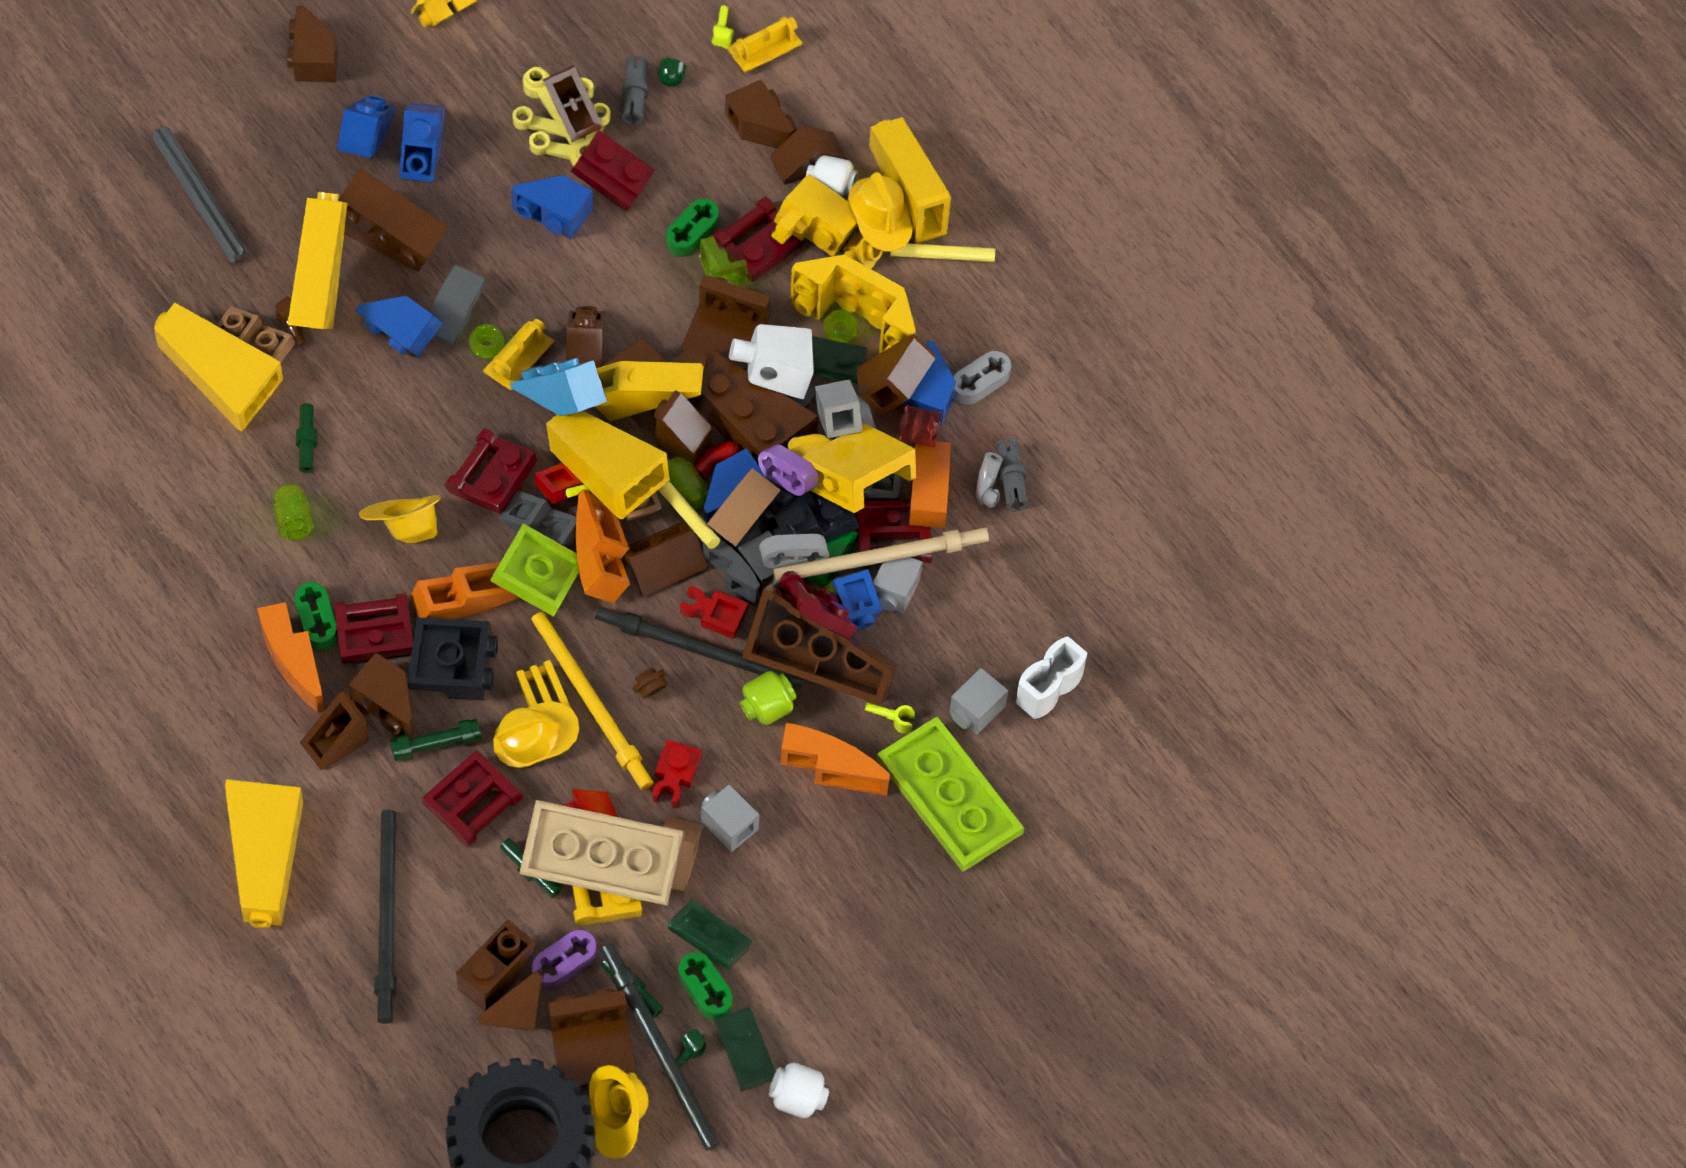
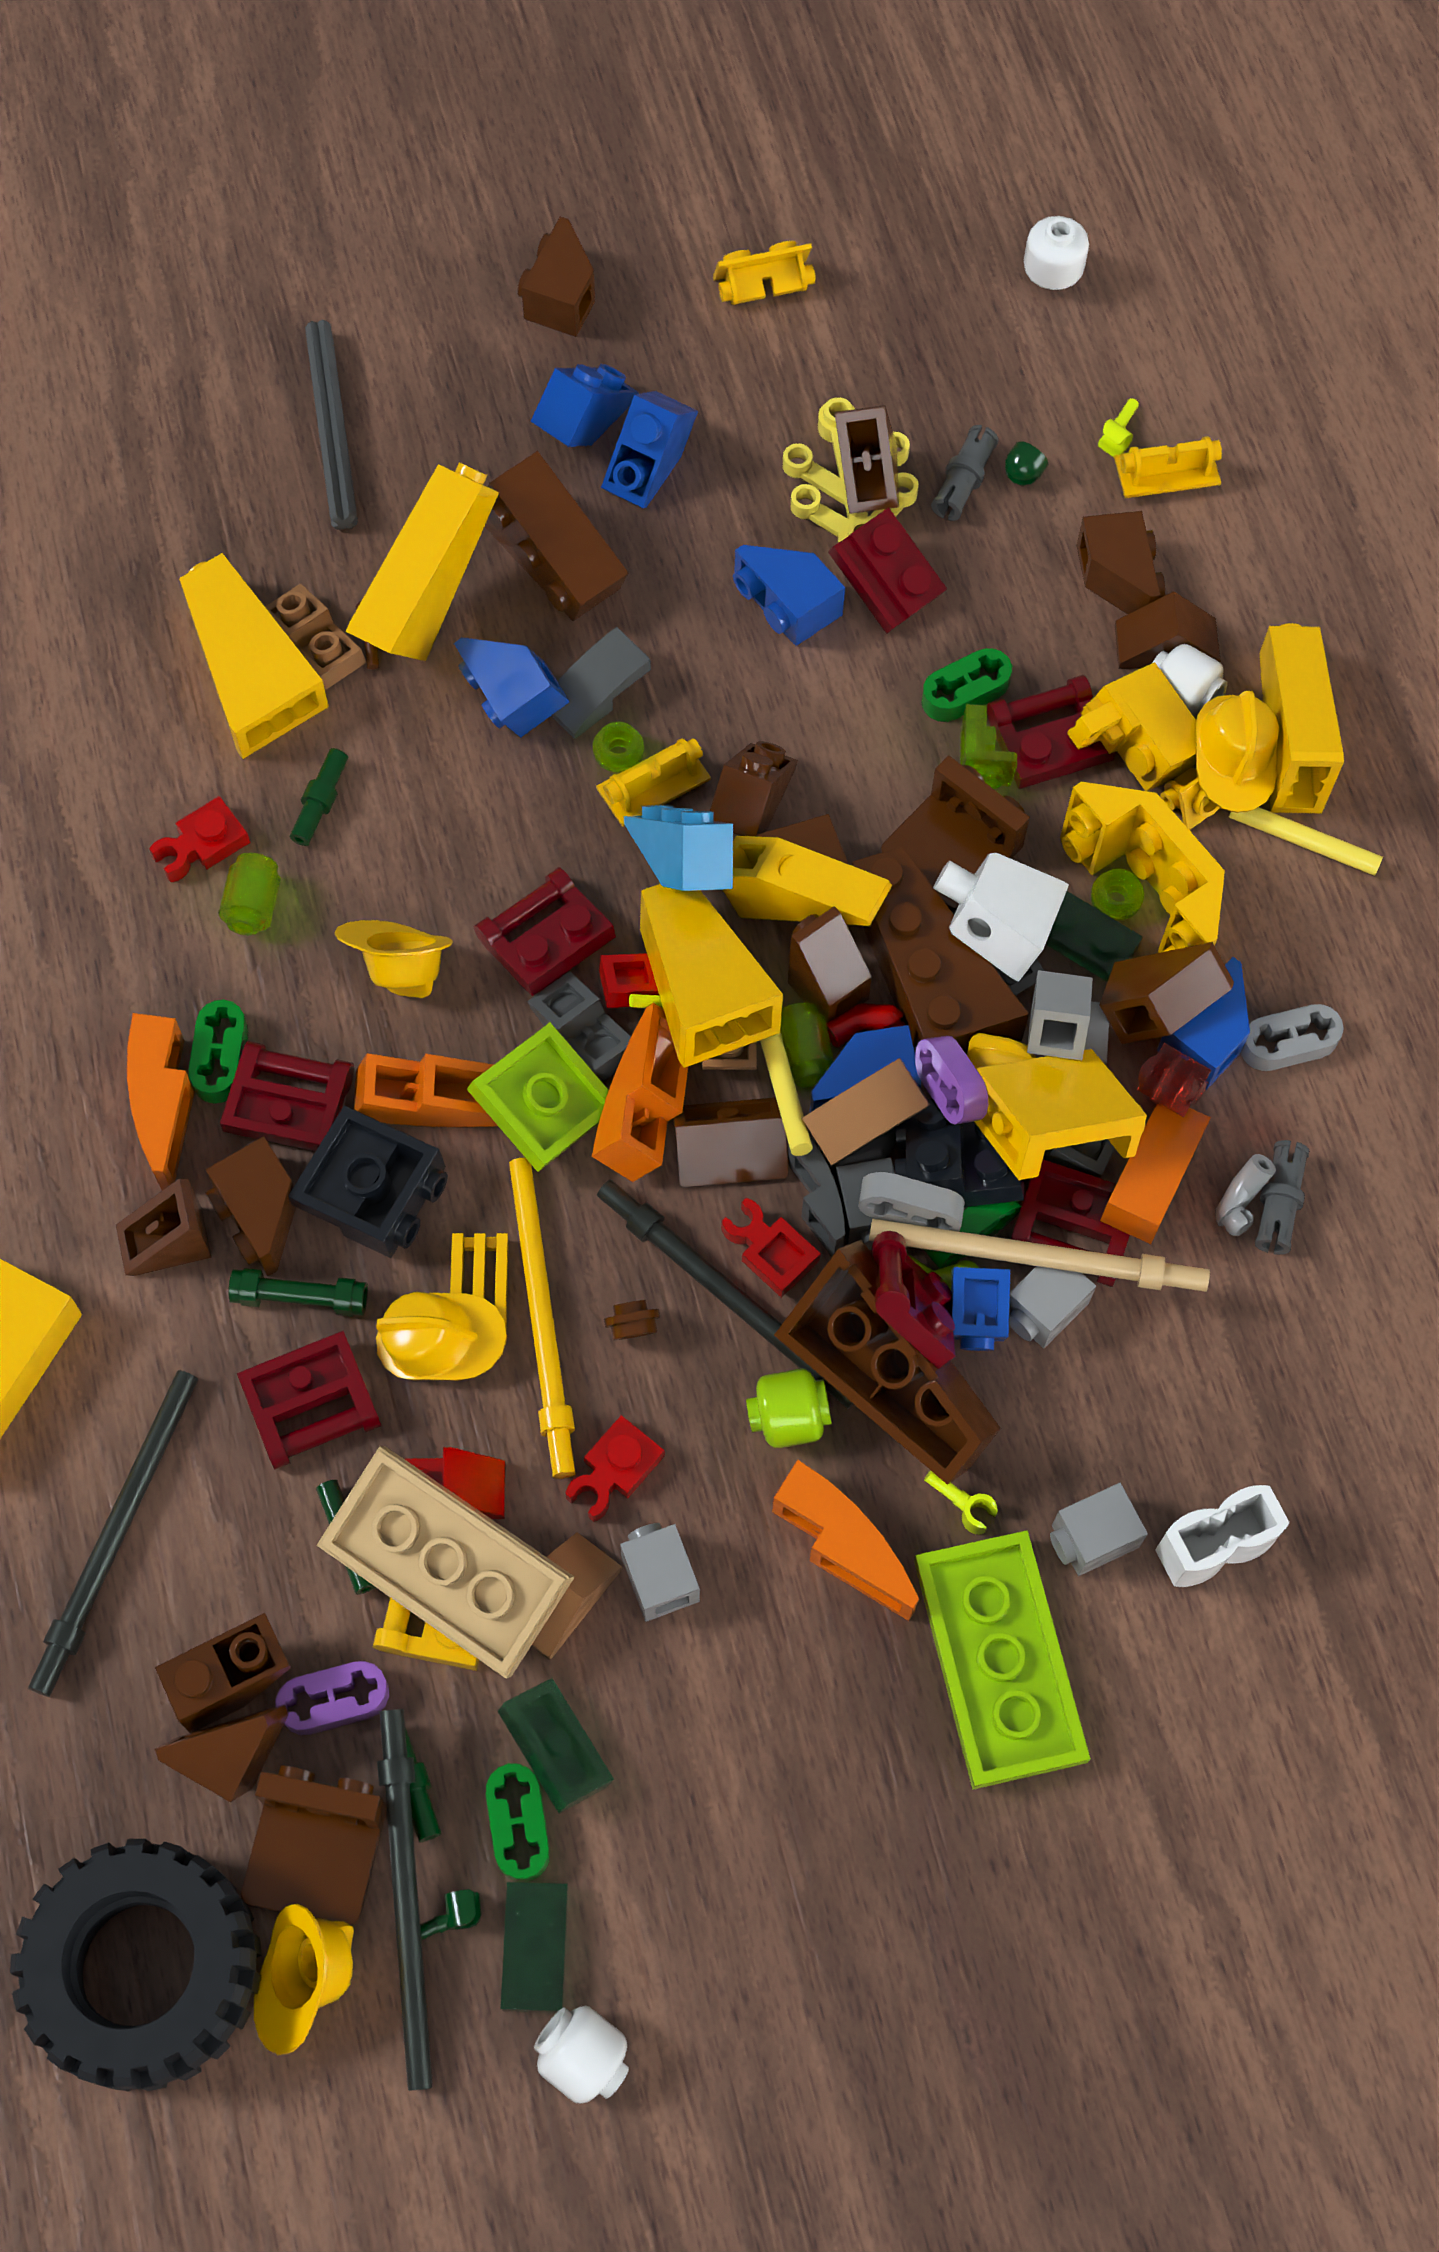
camera: 25 degrees right, 5 degrees up
(242, 487) = (204, 835): none -> red plate

